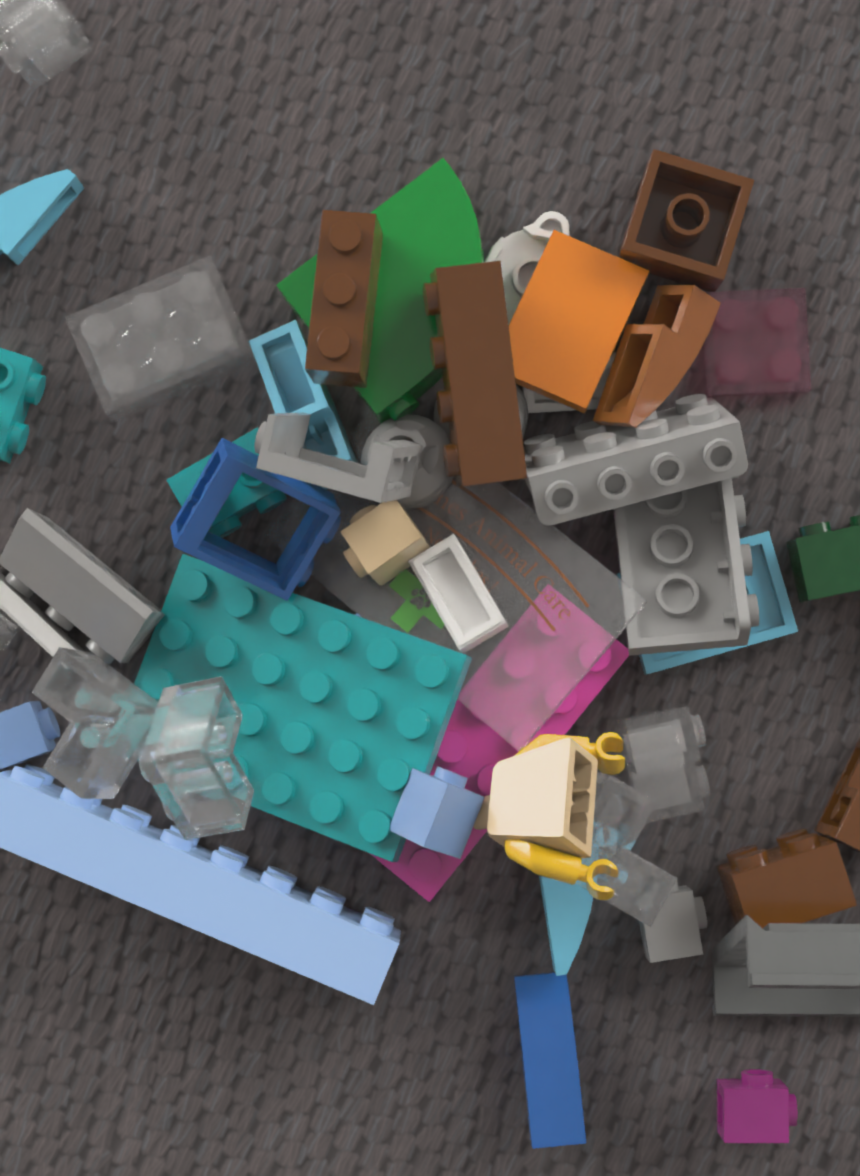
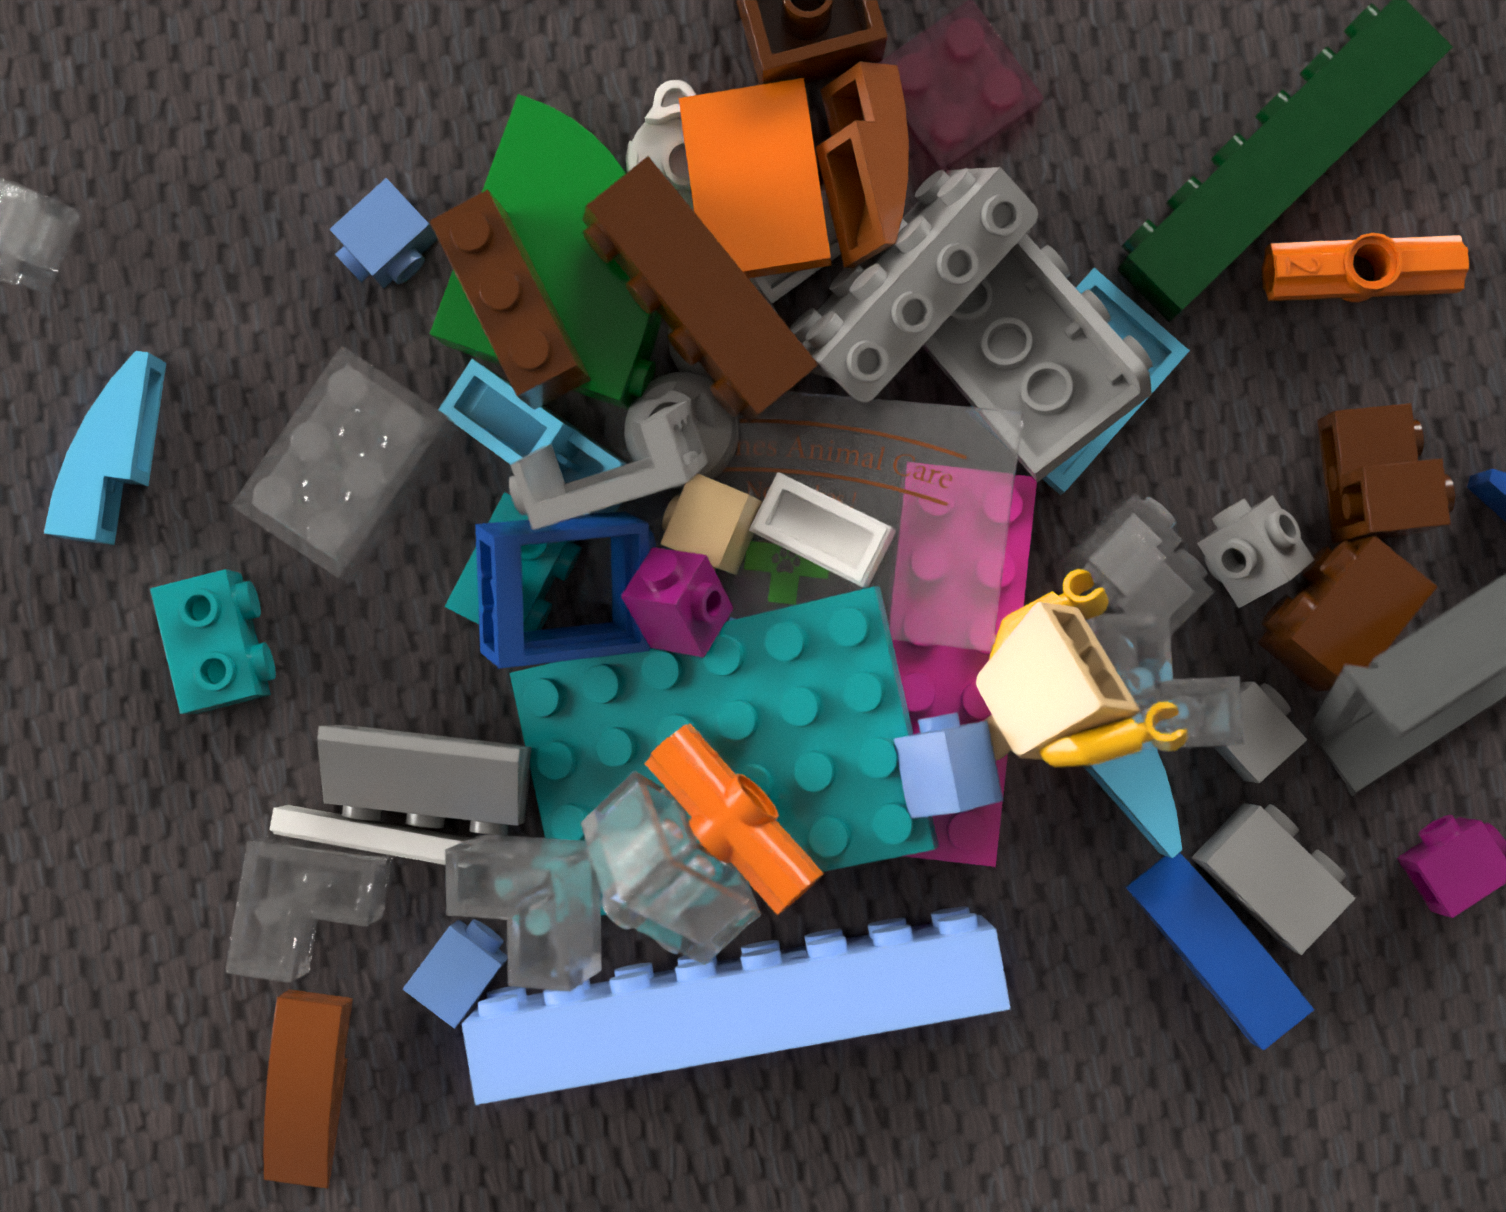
camera: 35 degrees left, 0 degrees up
(268, 752) = (733, 818): none -> orange piece
(287, 196) = (383, 237): none -> medium blue brick
(326, 579) = (677, 601): none -> magenta brick
(620, 1034) = (1274, 876): none -> light grey brick
(753, 799) = (1254, 549): none -> light grey brick

